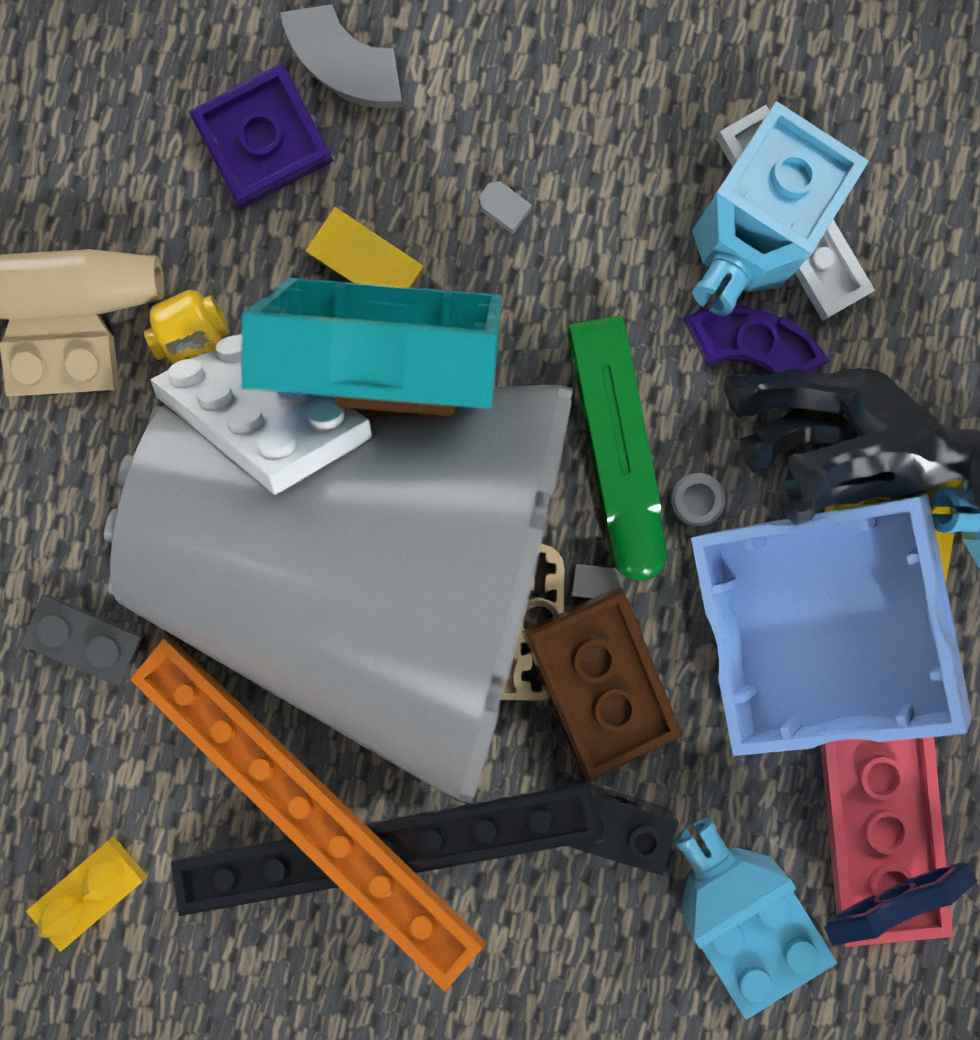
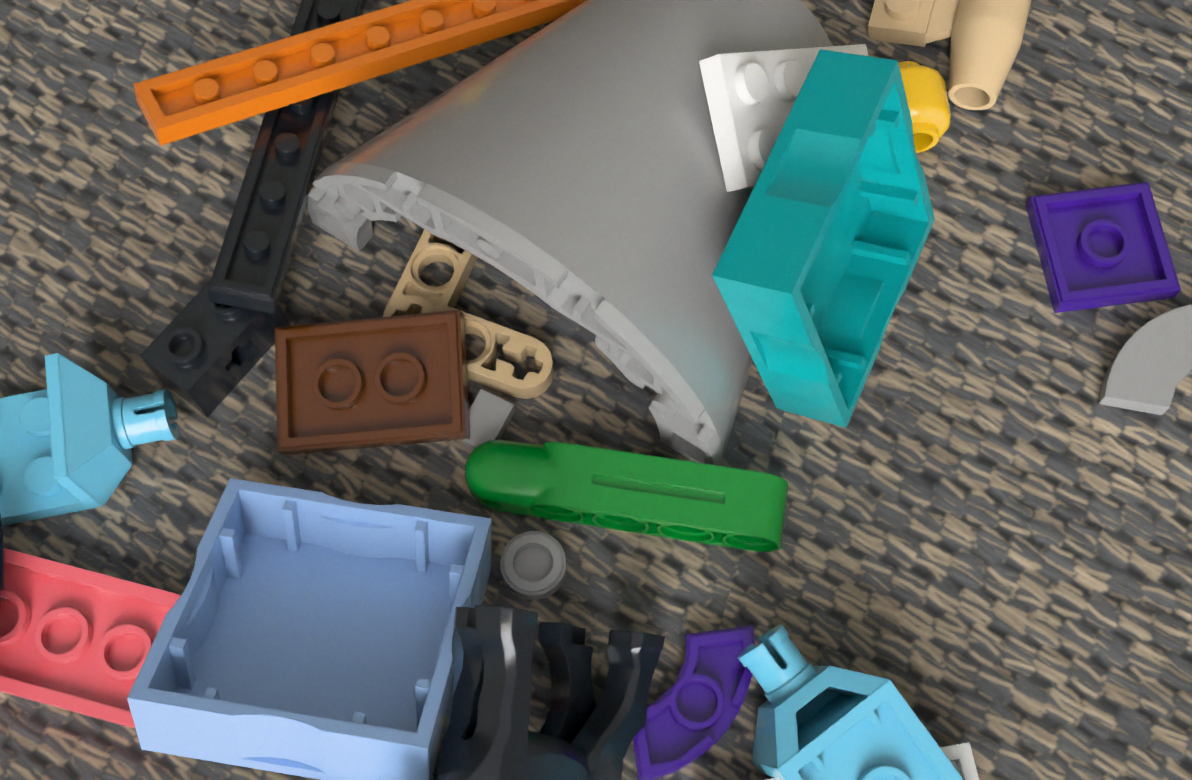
camera: 110 degrees right, 20 degrees down
(361, 254) = (937, 303): yellow tile -> none
(504, 206) = (949, 470): light grey piece -> none

